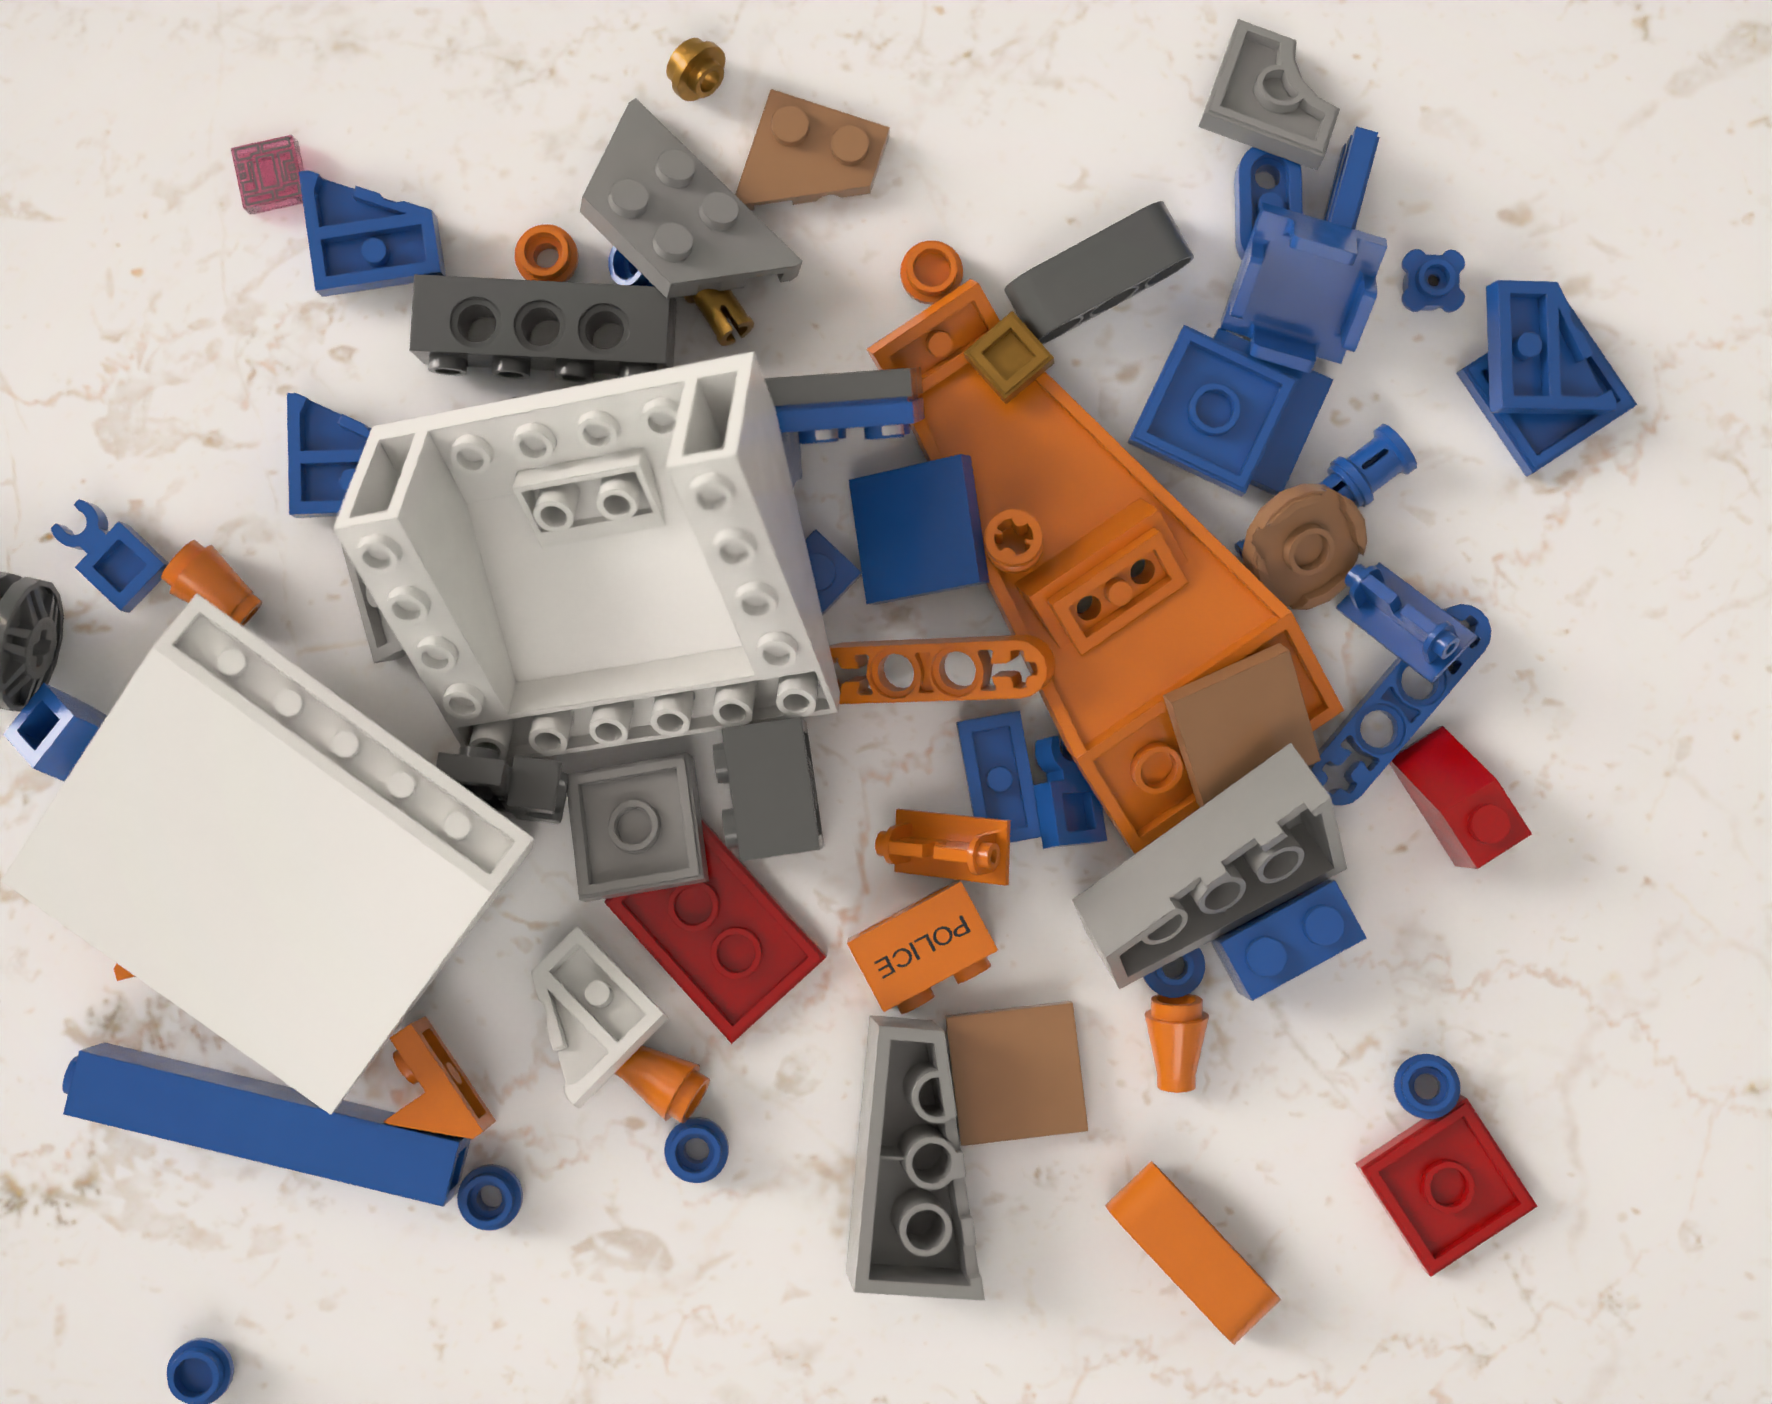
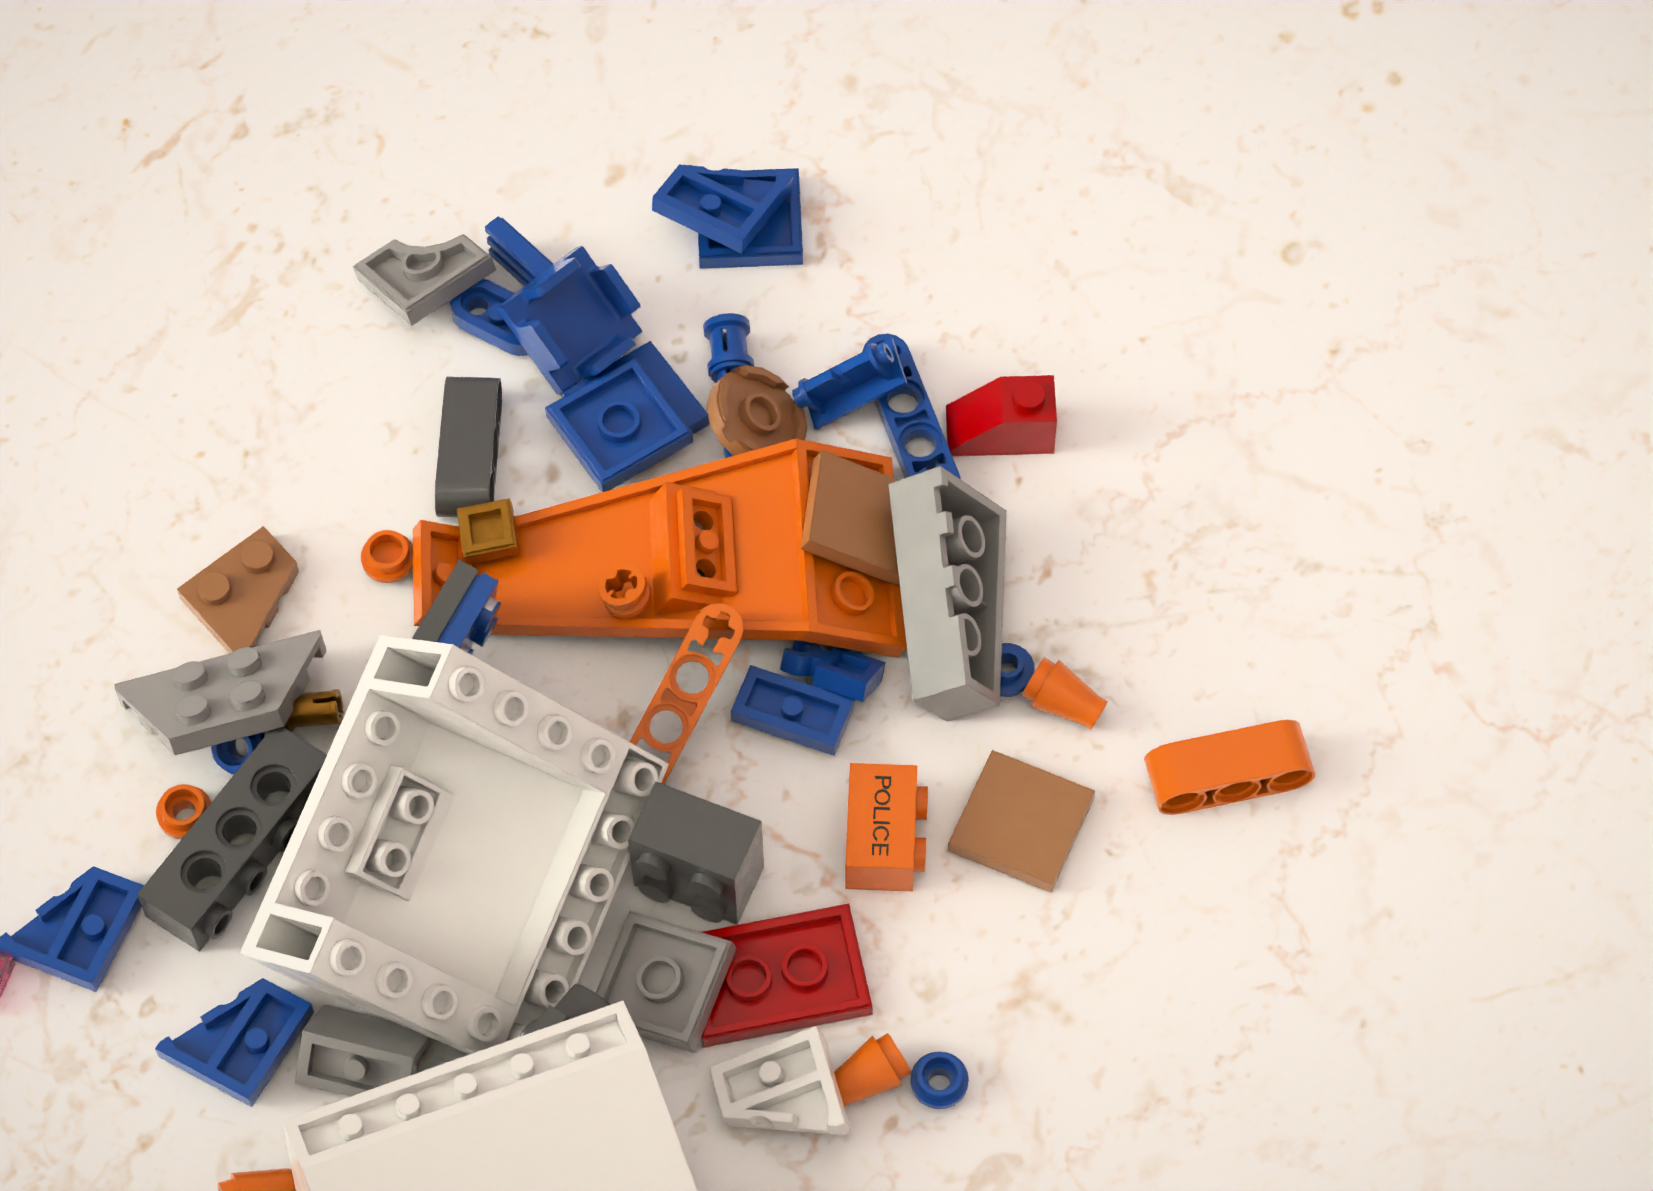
camera: 60 degrees left, 25 degrees down
(696, 69) = (125, 629): pearl gold plate -> none
(909, 1189) = (1042, 920): light grey wedge -> none
(918, 530) = (575, 655): blue tile -> none
(947, 846) = (820, 765): orange hinge -> none
(1288, 940) = (1032, 578): blue brick -> none
(1417, 291) = (624, 257): blue plate -> none
(1446, 1078) = (1198, 536): blue plate -> none
(1446, 1186) = (1283, 579): red tile -> none

